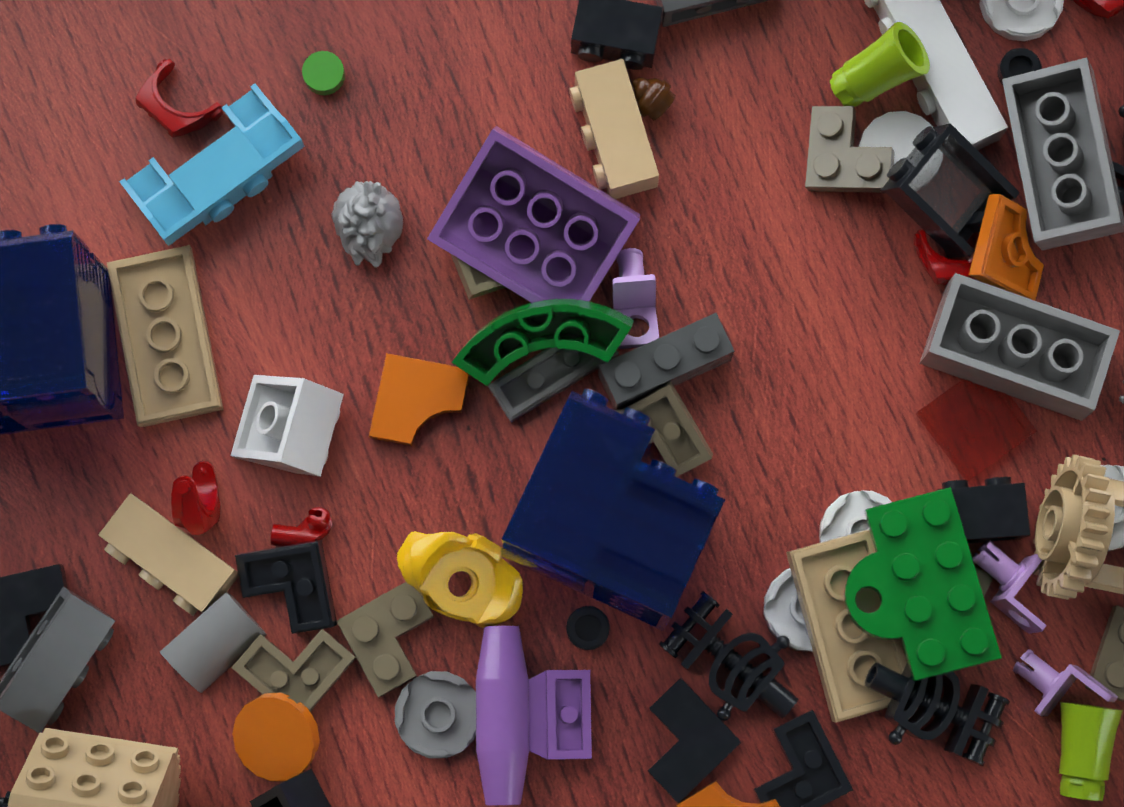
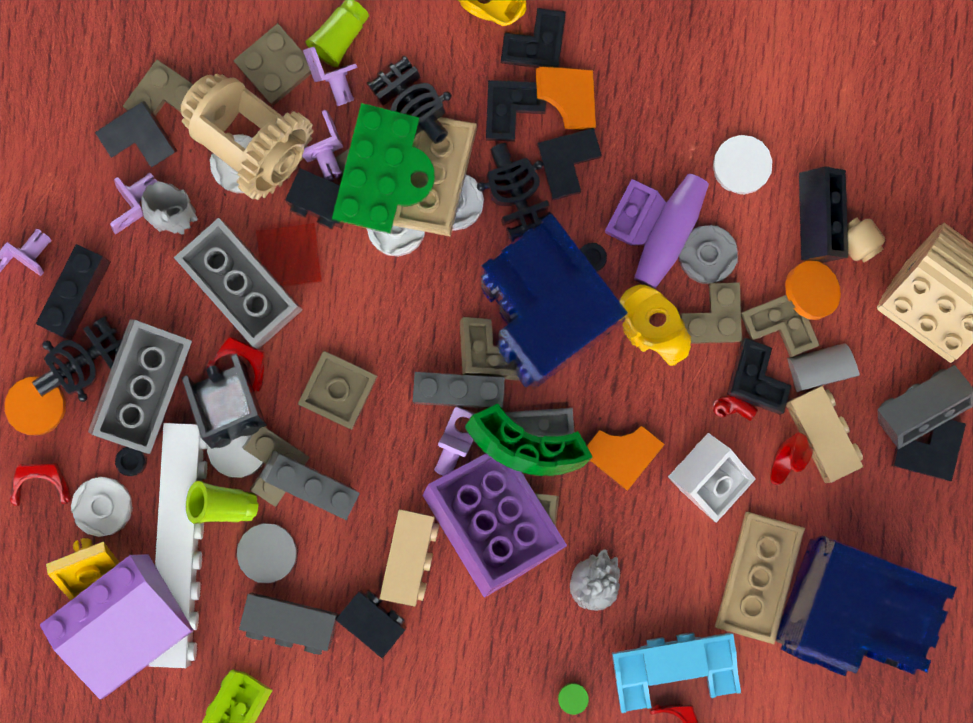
camera: 150 degrees left, 5 degrees up
(652, 96) = (372, 566): reddish brown plate -> none
(785, 146) = (310, 485): none -> dark grey brick
(790, 48) = (267, 553): none -> light grey tile
(817, 285) = (337, 390): none -> dark tan plate
(1003, 250) = (212, 346): orange tile -> none

